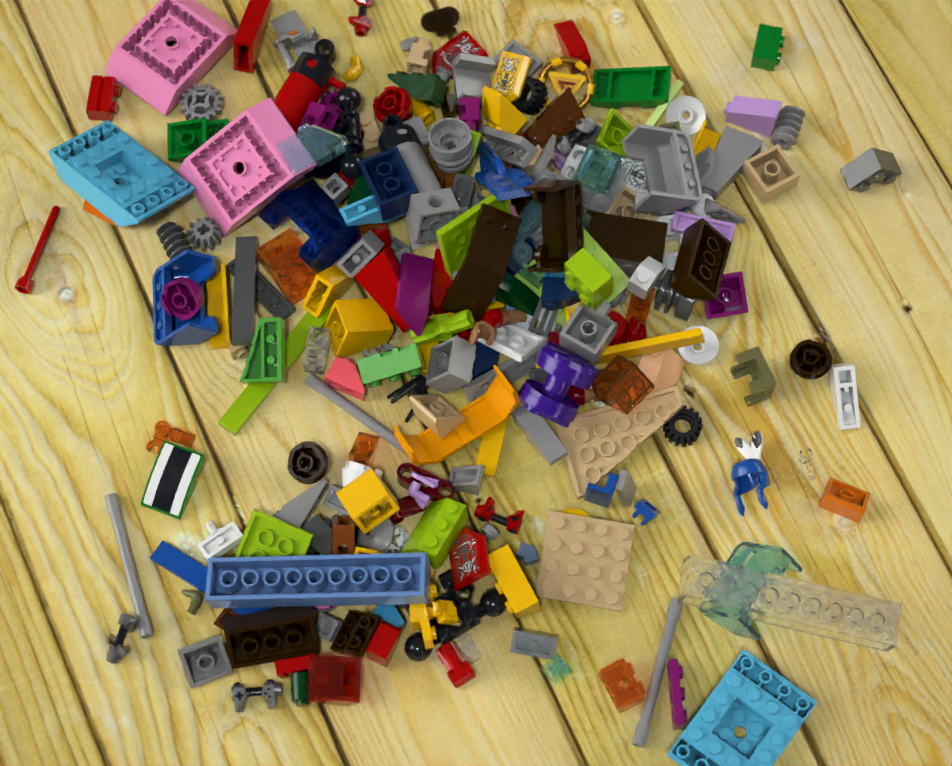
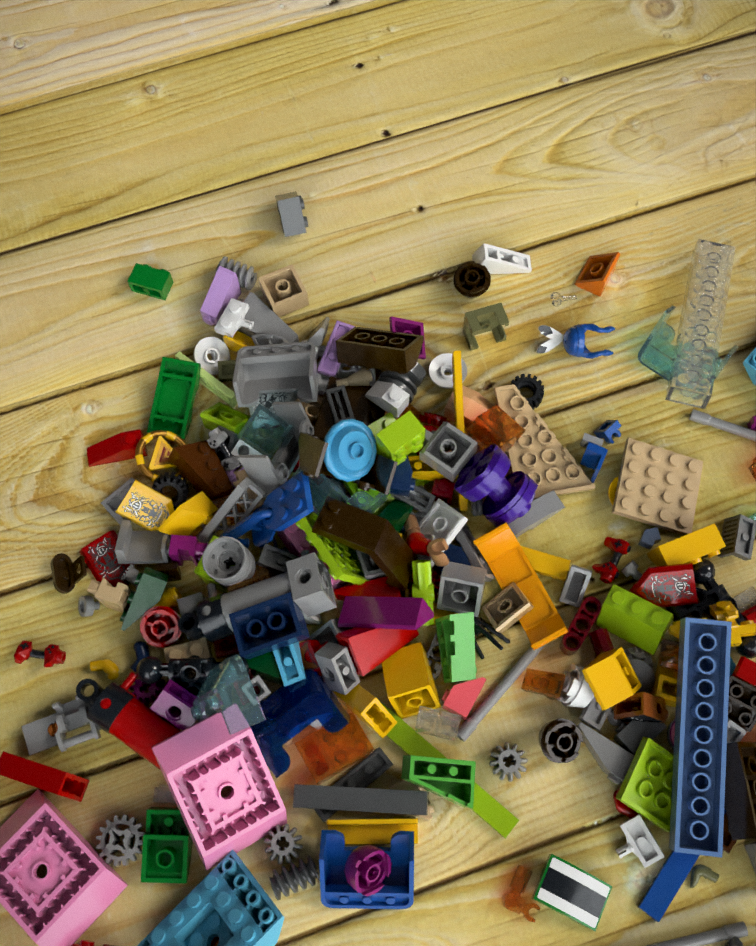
camera: 80 degrees left, 0 degrees up
(287, 428) = (512, 769): none -> light grey gear
(368, 97) = (142, 651): none -> dark blue arm
(421, 497) = (584, 626): lavender piece -> none
(568, 228) = (350, 450): none -> dark azure piece
(621, 245) = (335, 390): none -> dark grey tile
(666, 249) = (359, 378): none -> dark tan cone
(726, 126) = (233, 318): none -> white plate

